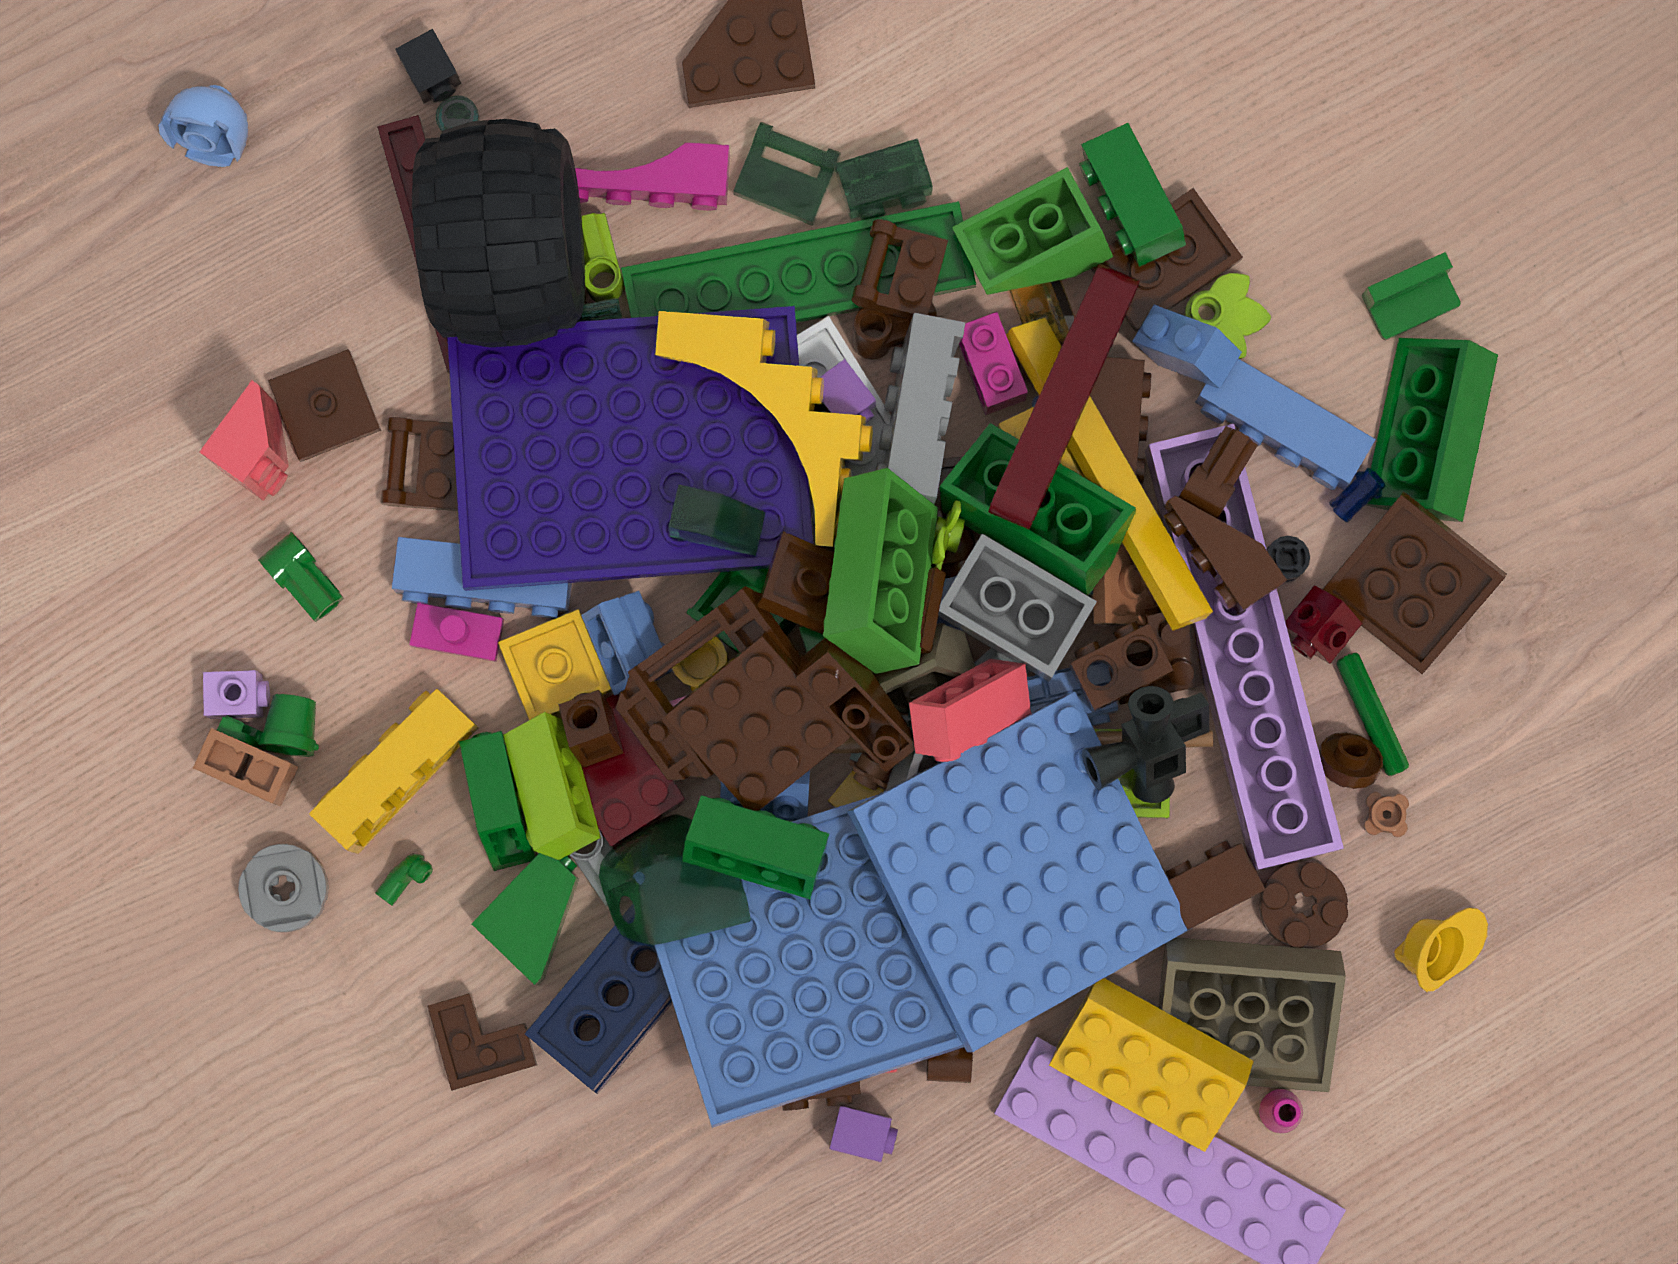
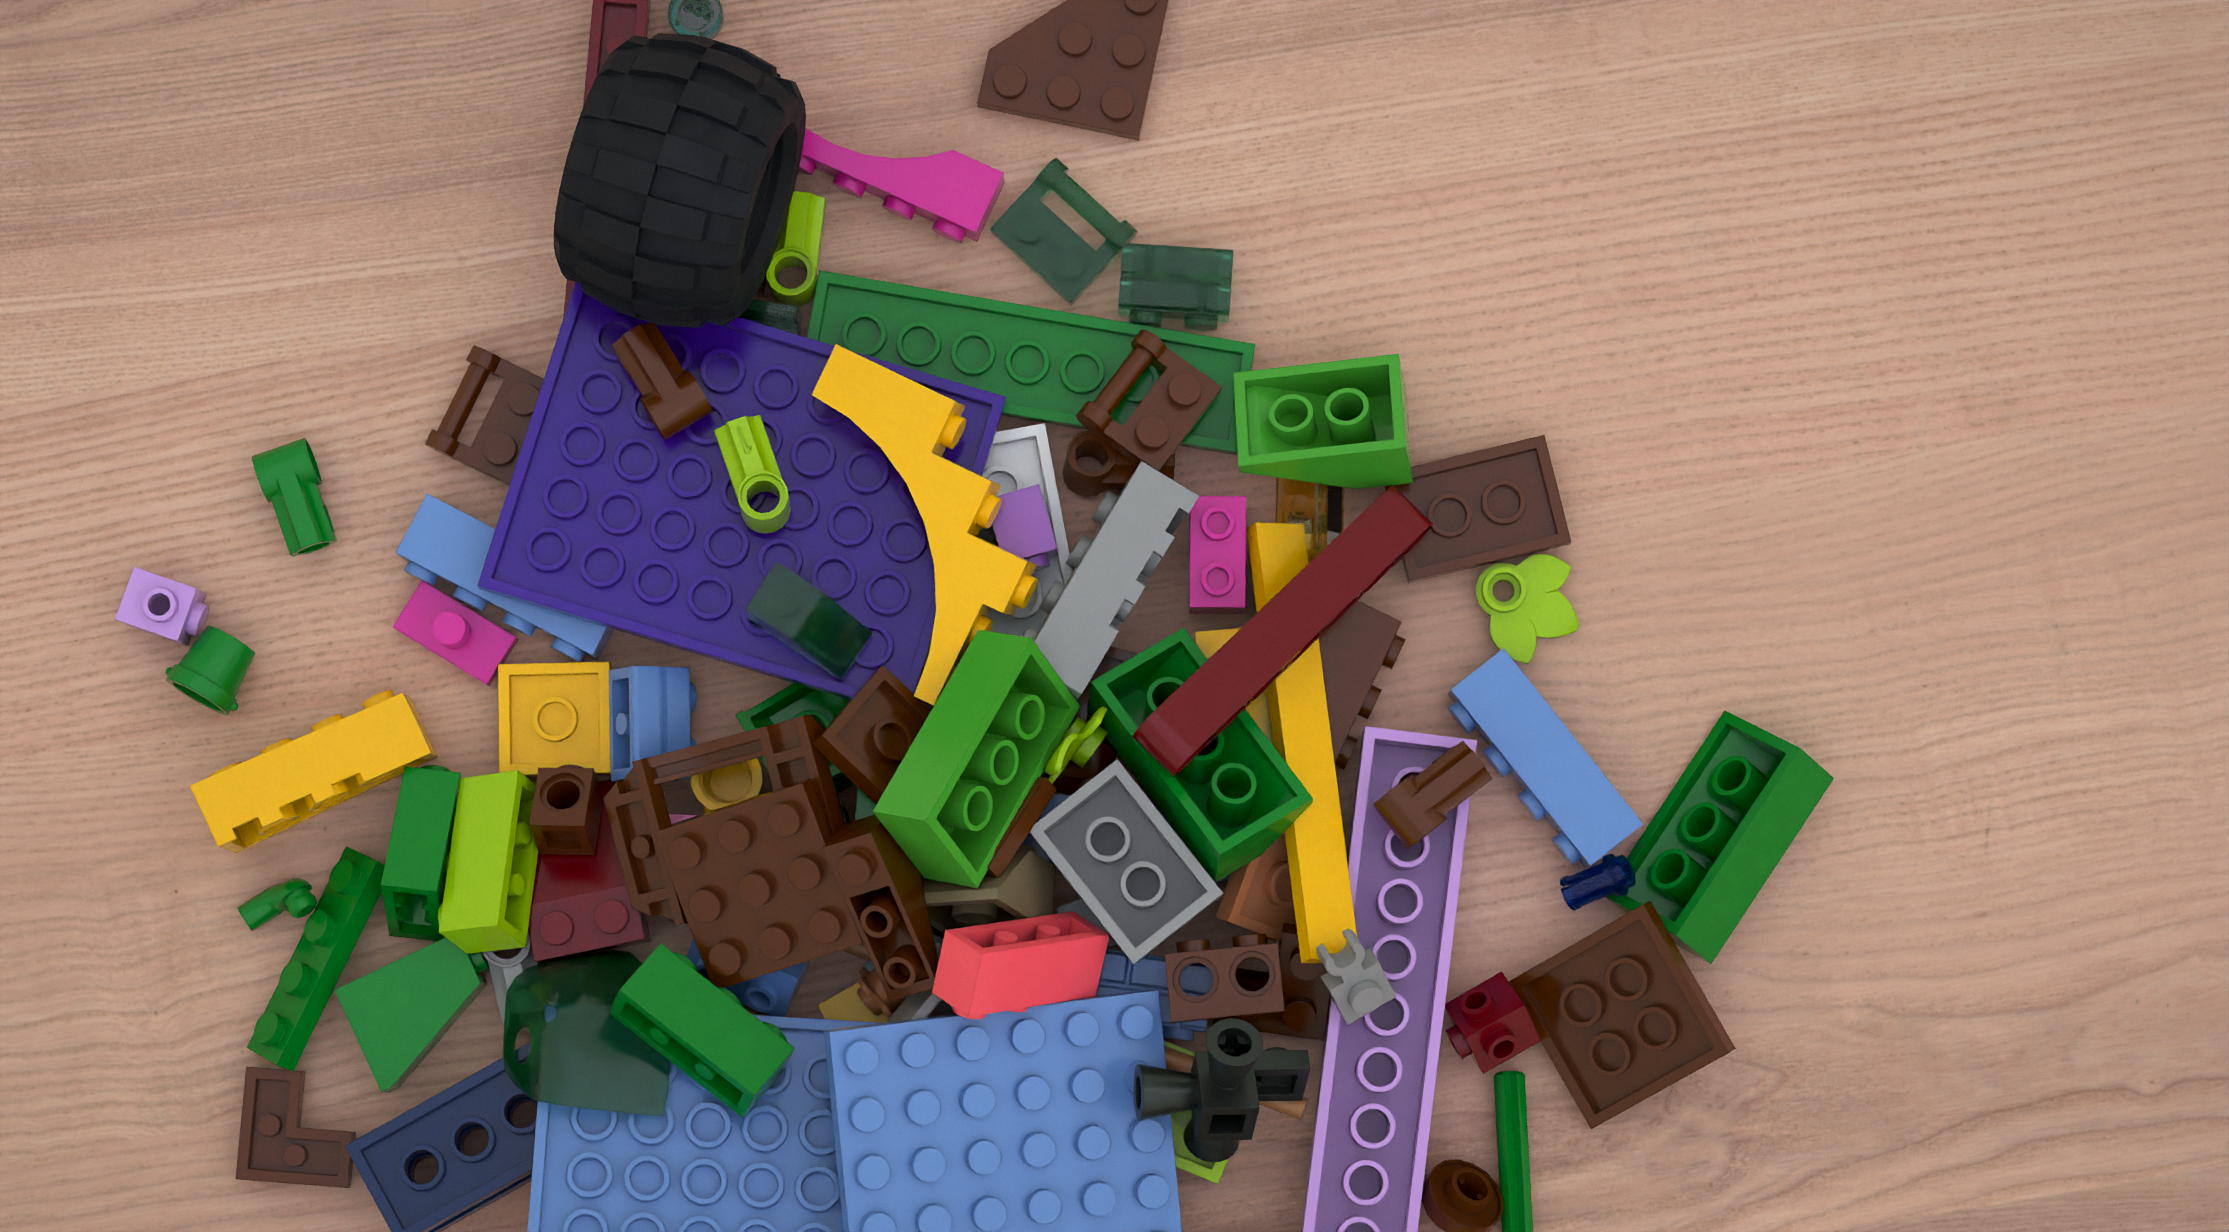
camera: 25 degrees right, 0 degrees up
(239, 731) = (150, 652): green tile -> none
(245, 767) = (141, 699): nougat brick -> none
(251, 443) = (294, 317): coral slope -> none
(264, 872) = (114, 833): light grey plate -> none
(324, 405) = (403, 301): reddish brown plate -> none
(450, 906) = (318, 959): none -> green plate
(549, 394) = (667, 391): none -> reddish brown piece
(633, 427) = (753, 471): none -> lime piece
(1131, 195) = (1463, 417): green brick -> none
(1187, 346) = (1458, 625): medium blue brick -> none
(1216, 627) = (1354, 979): none -> light grey plate
(1232, 558) = (1410, 906): reddish brown slope -> none
(1284, 560) = (1472, 930): black wheel -> none
(1412, 297) = (1759, 668): green panel -> none

